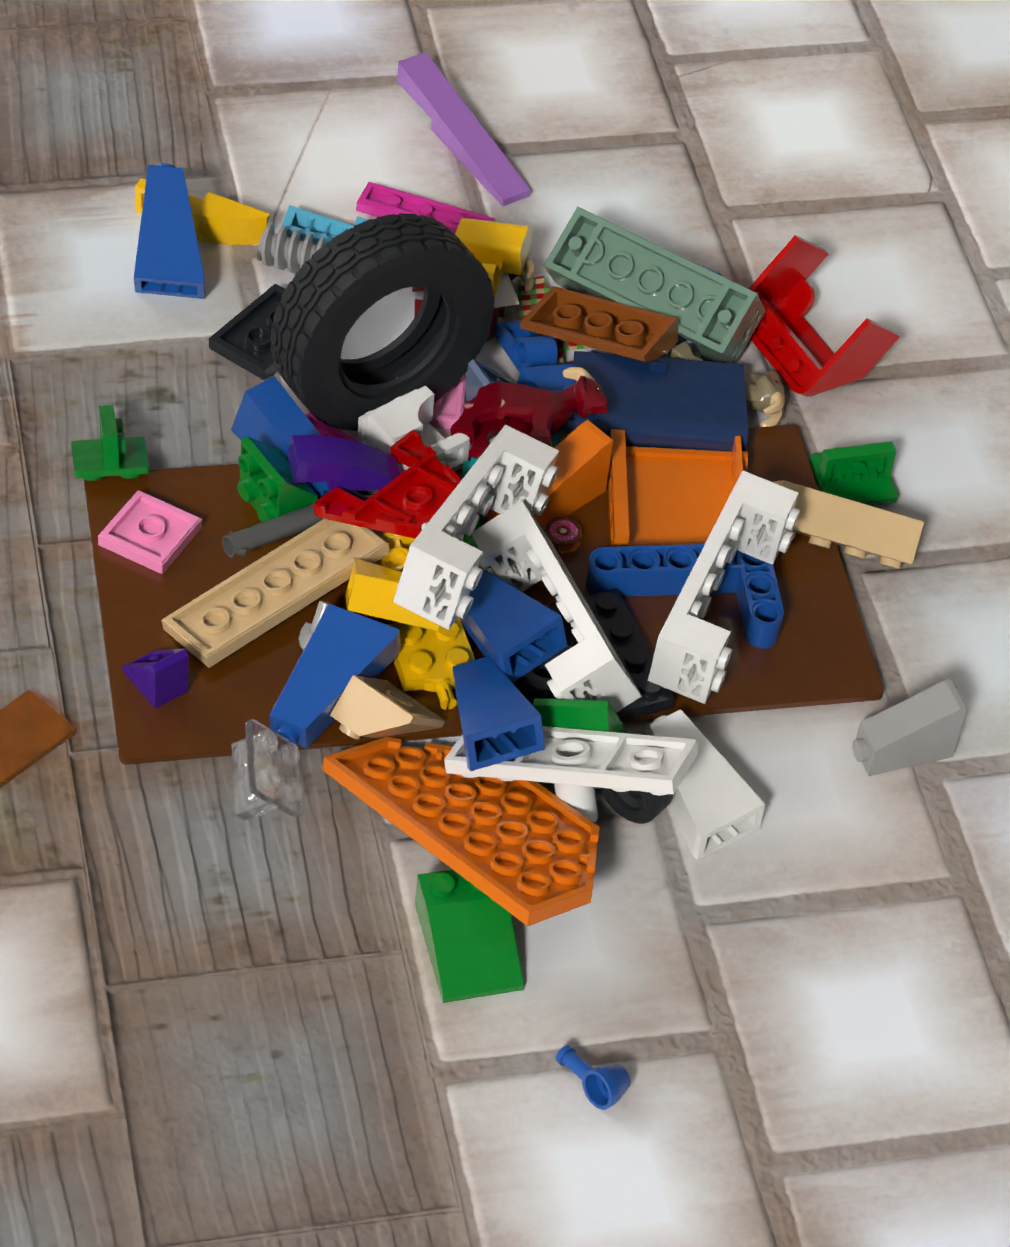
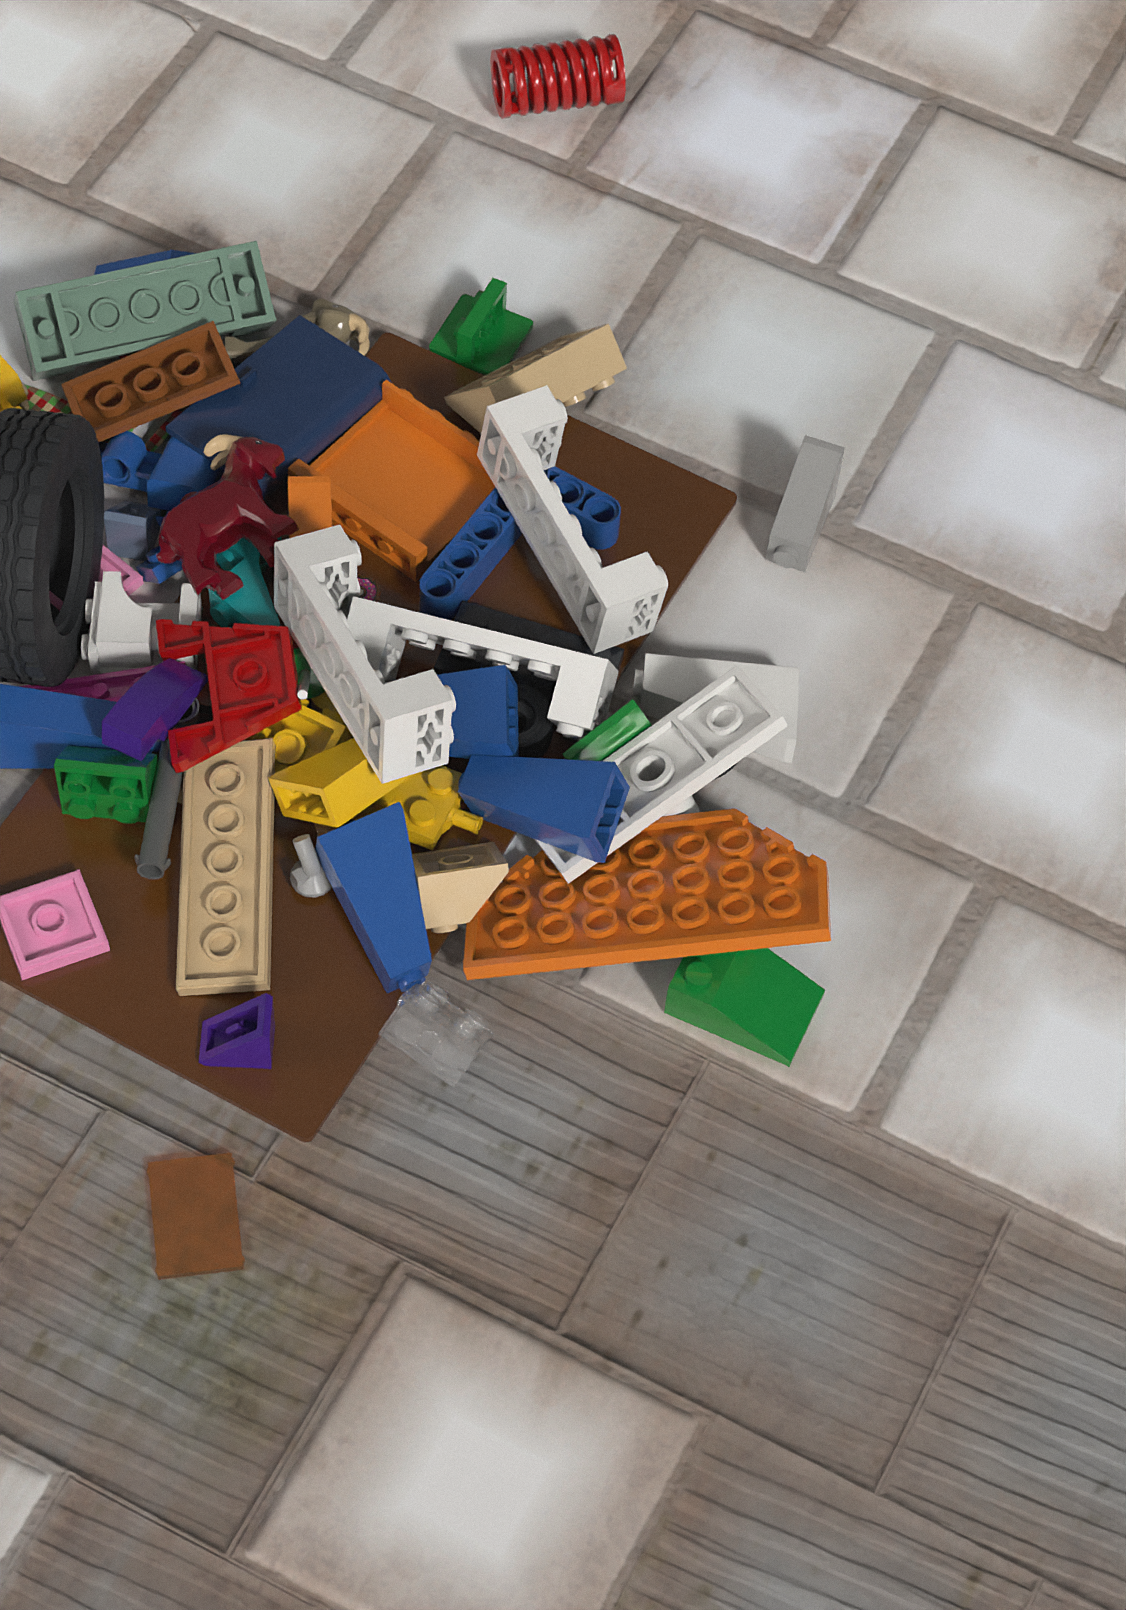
camera: 50 degrees left, 10 degrees up
(601, 1084) = (980, 1007): blue bar -> none
(792, 343) = (292, 263): red windscreen -> none

